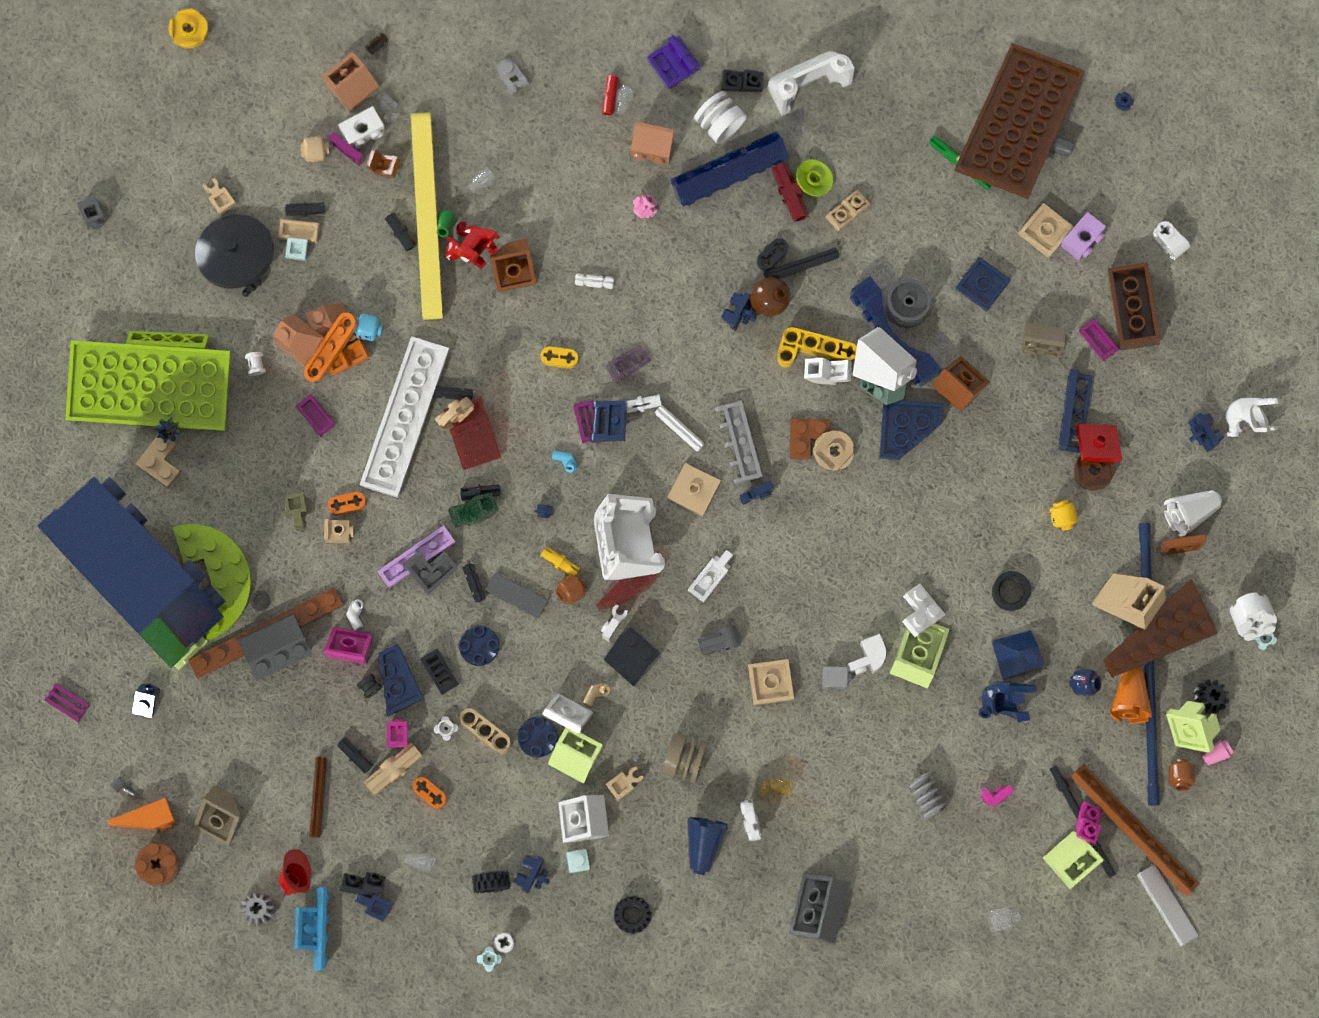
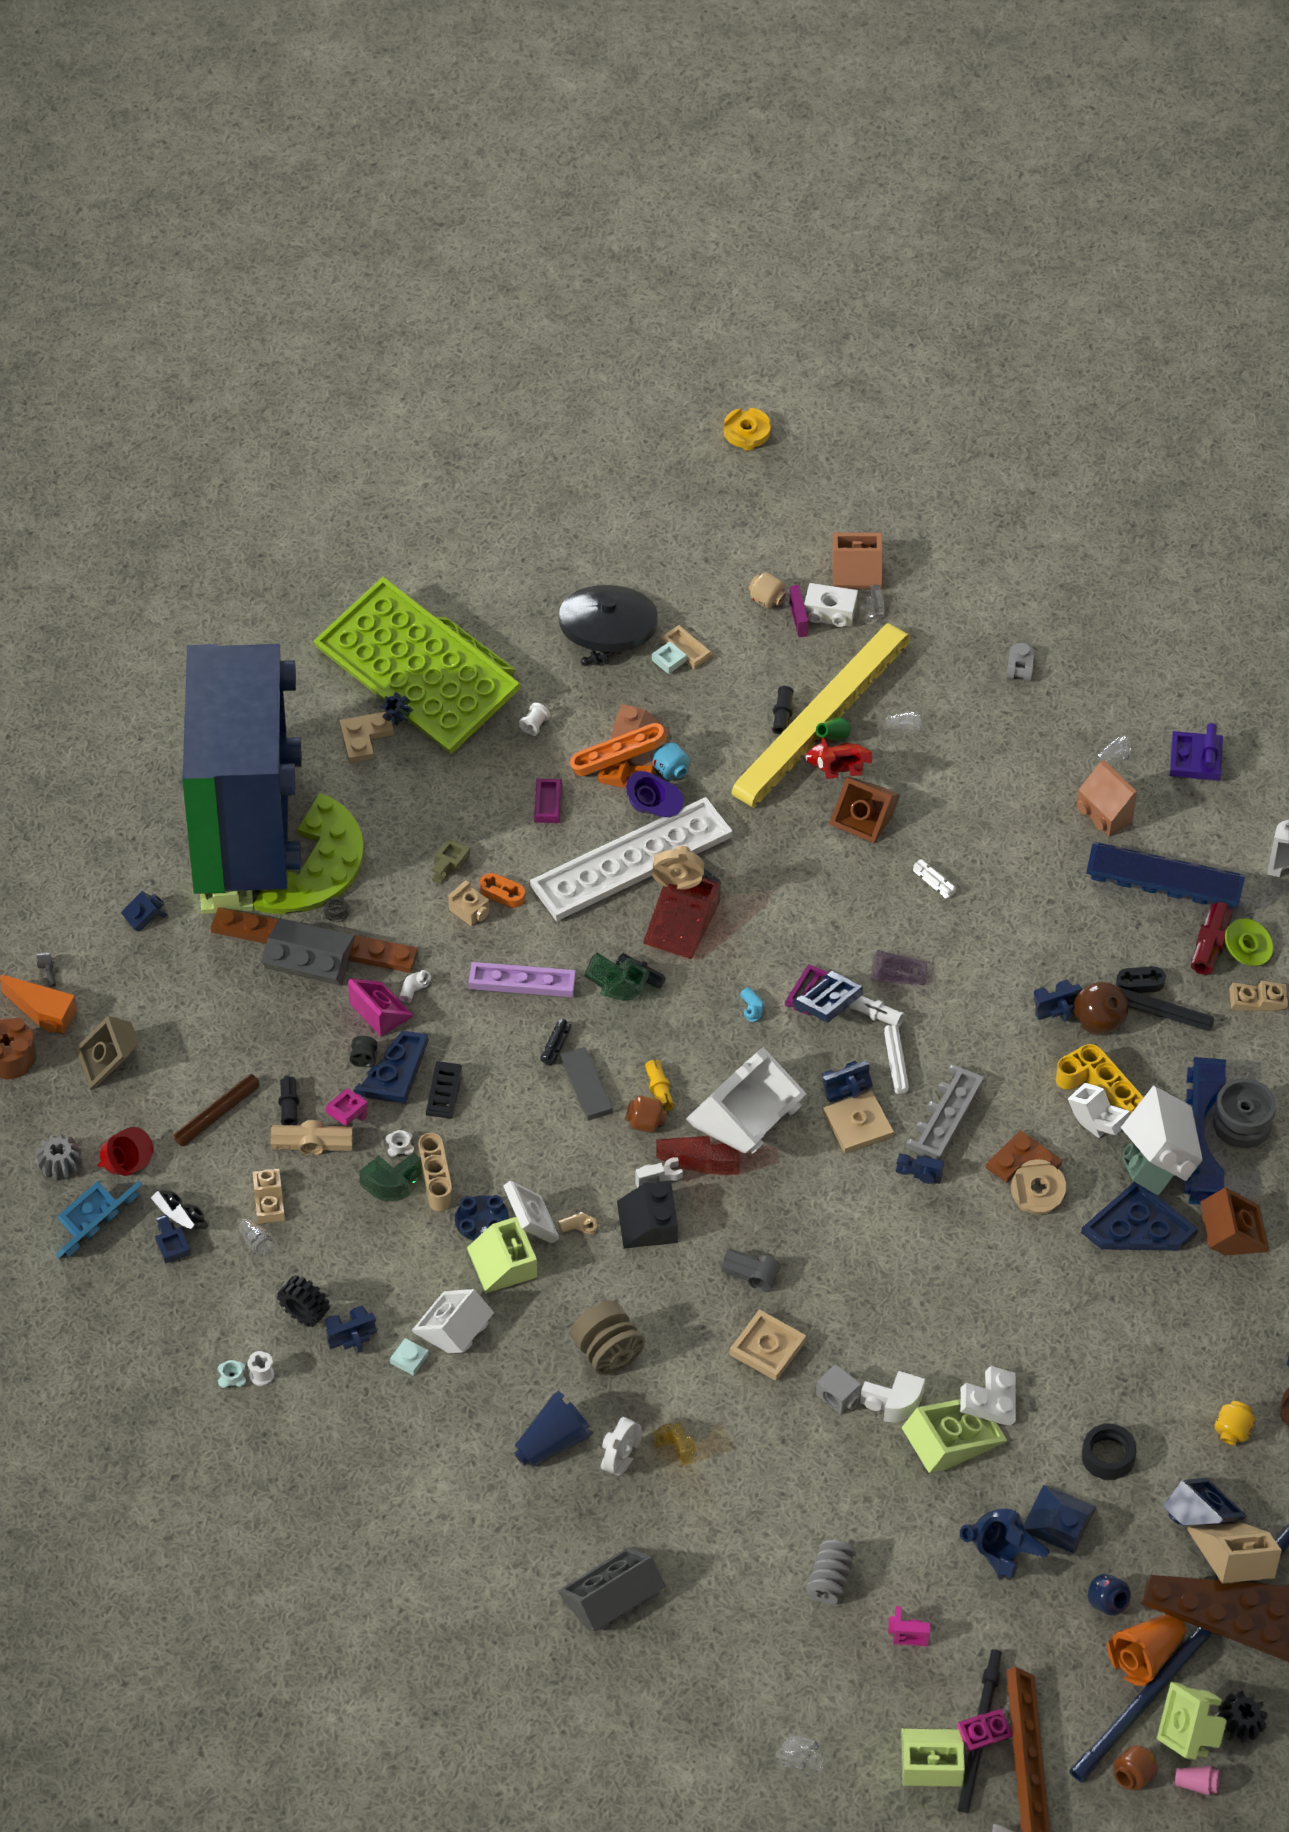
camera: 40 degrees right, 25 degrees down
(52, 693) = (68, 847): magenta tile -> none
(89, 207) = (509, 508): dark grey brick -> none
(219, 198) = (639, 571): tan plate -> none
(297, 339) = (592, 718): nougat slope -> none
(305, 209) = (711, 633): black axle -> none
(376, 43) = (914, 552): dark brown piece -> none
(382, 362) = (653, 795): none -> dark purple piece
(383, 164) = (820, 646): dark orange bracket -> none
(402, 827) = (268, 1196): none -> tan slope
(426, 796) = (320, 1186): orange beam -> none
(432, 574) = (517, 1002): dark grey plate -> none
(466, 761) = (388, 1182): none -> clear green brick
(479, 645) = (505, 1097): dark blue dish -> none
(544, 511) = (687, 1031): dark blue plate -> none
(560, 352) = (832, 918): yellow beam -> none
(610, 93) = (1100, 742): red piece -> none
(621, 784) = (521, 1321): tan plate -> none
(623, 905) = (413, 1458): black tyre -> none
(645, 206) = (1047, 849): bright pink gear -> none
(668, 469) = (847, 1081): none -> dark blue hips
(710, 576) = (800, 1206): white hinge -> none
(720, 117) = (1198, 823): white wheel -> none
(742, 81) = (1258, 821): black slope -> none
(1090, 583) = (1201, 1503): none -> slope

